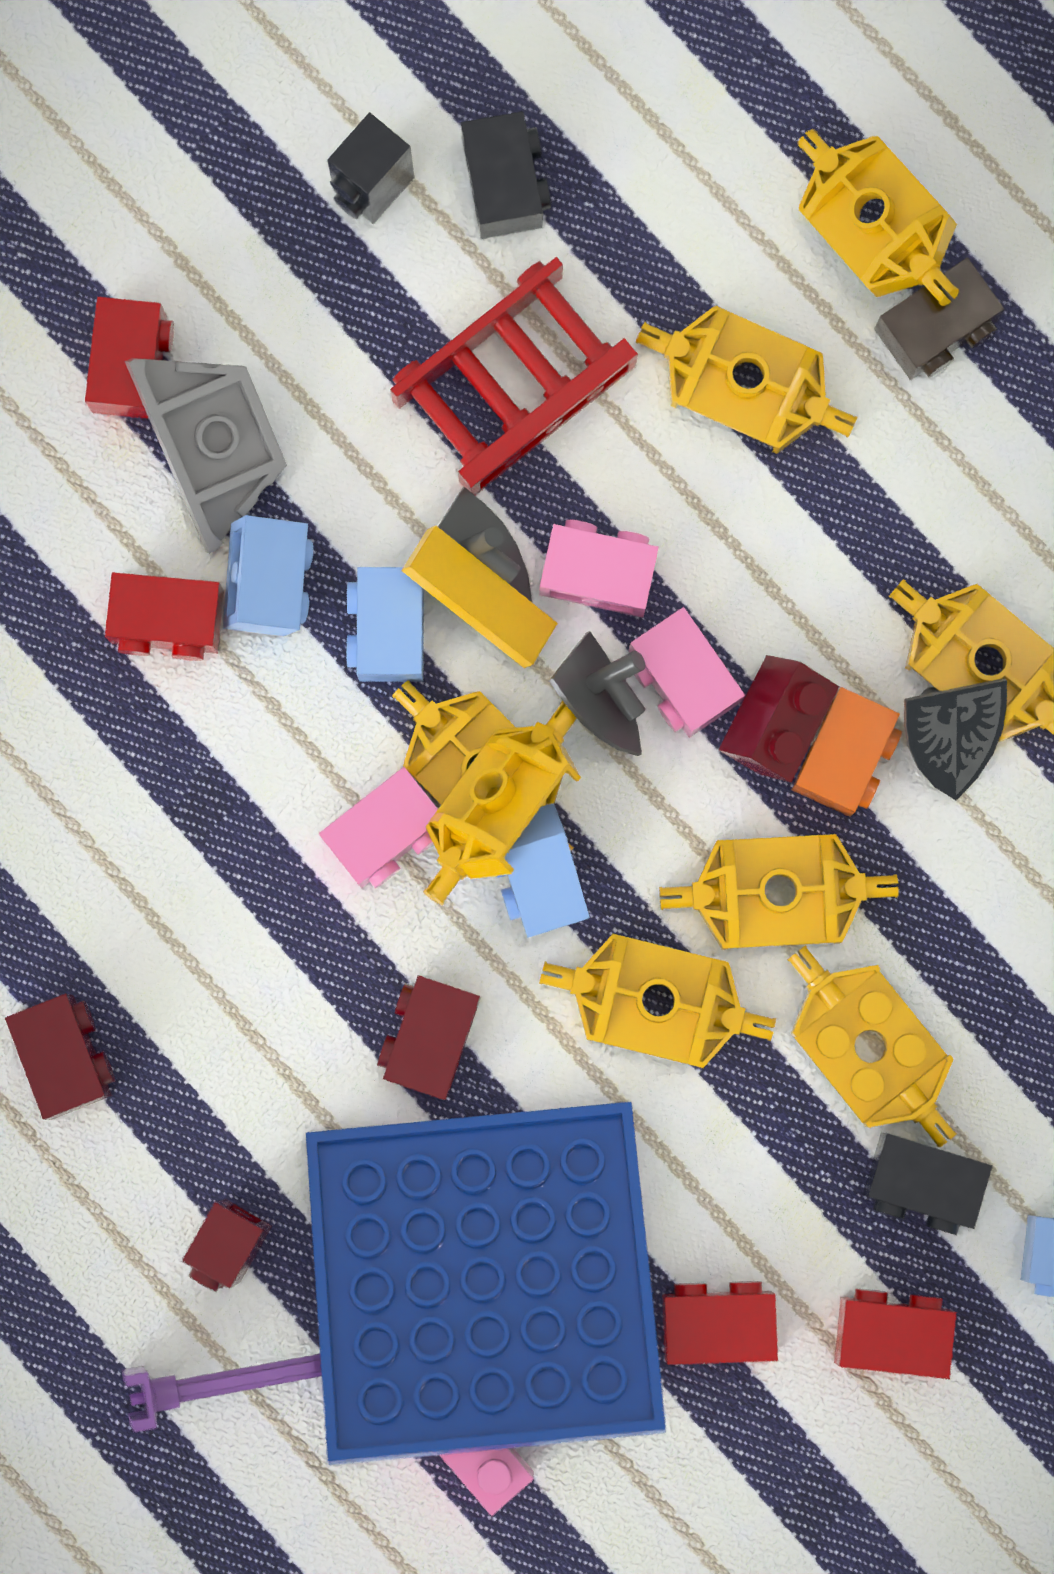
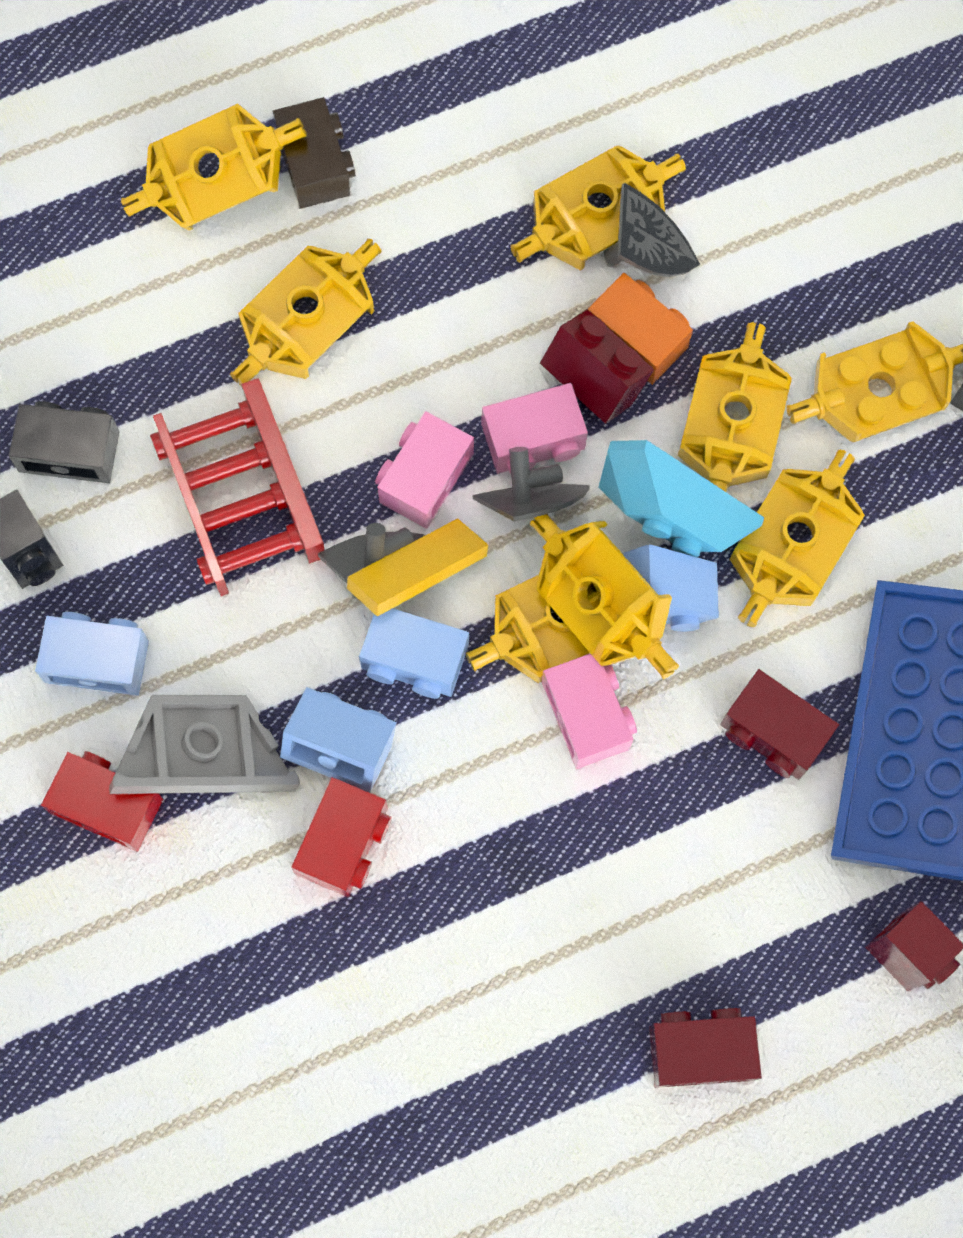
camera: 75 degrees left, 10 degrees down
(278, 290) = (92, 653): none -> light blue brick
(625, 853) = (673, 499): none -> medium azure wedge

